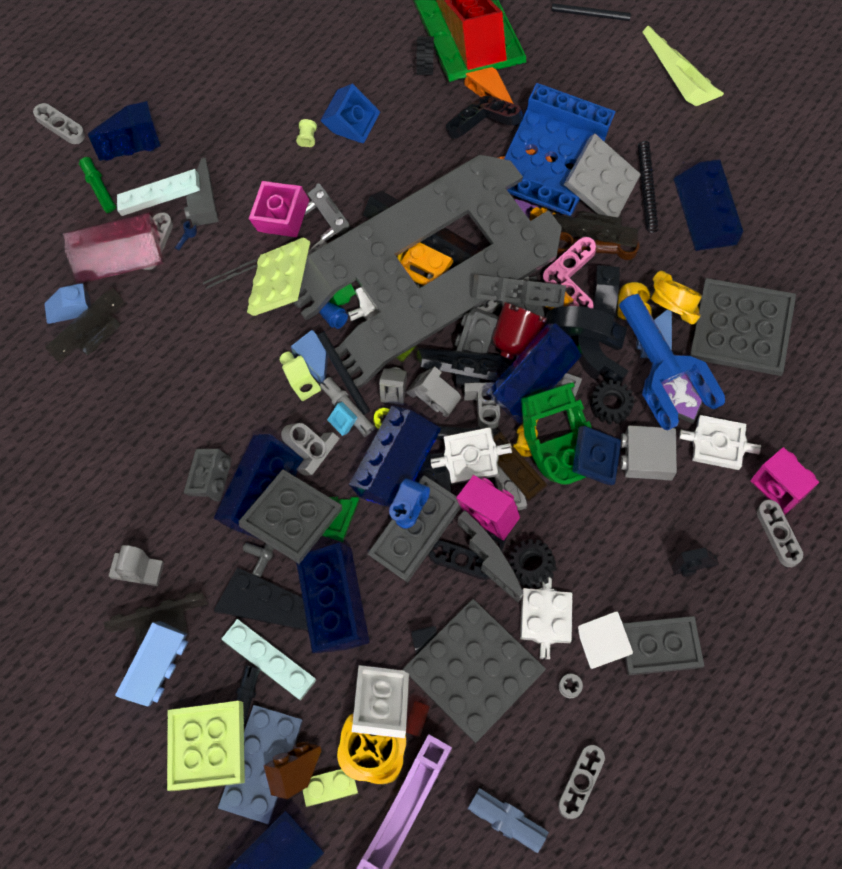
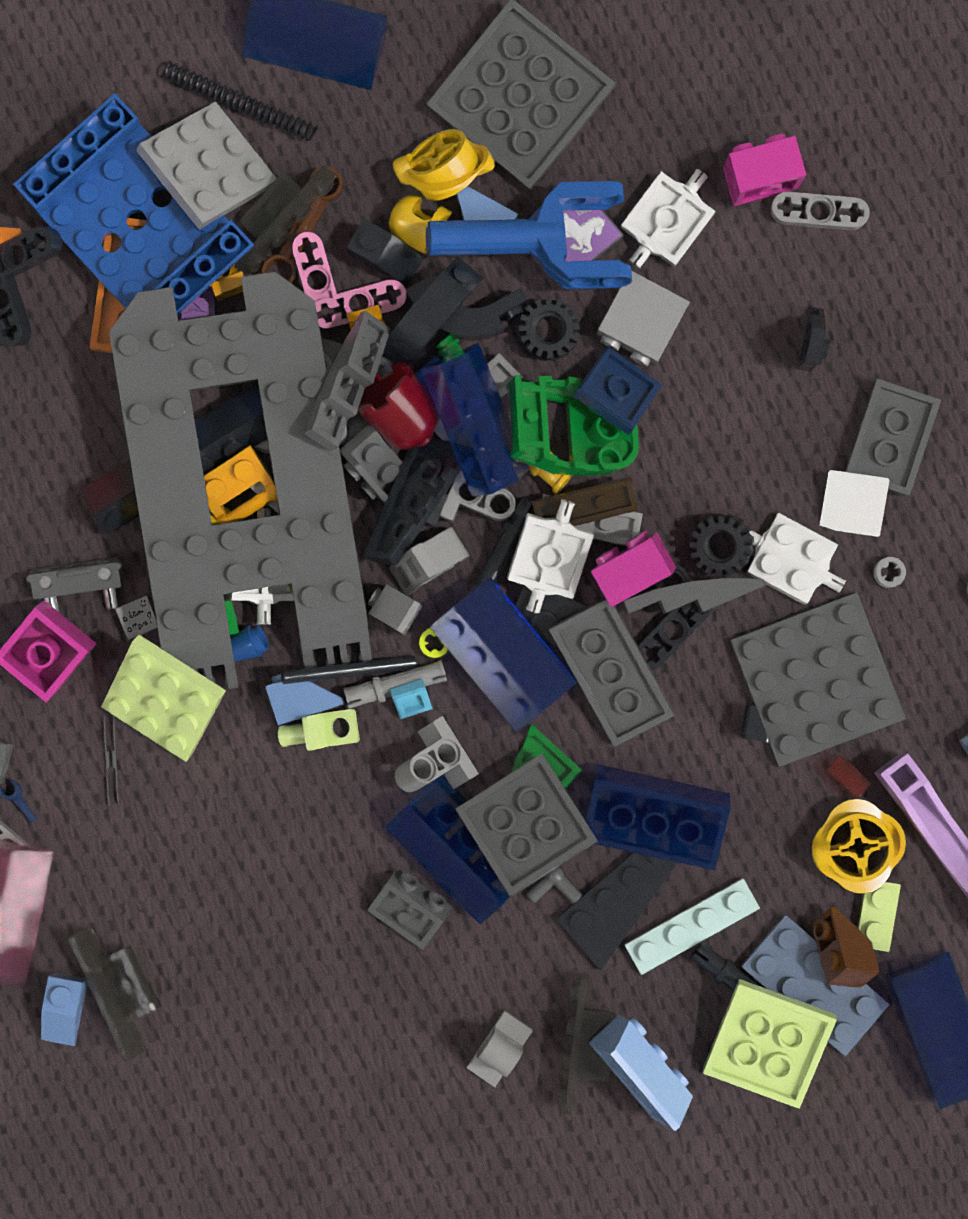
camera: 65 degrees left, 20 degrees up
(381, 702) = (813, 812): white plate -> none
(409, 503) = (577, 662): blue piece -> none

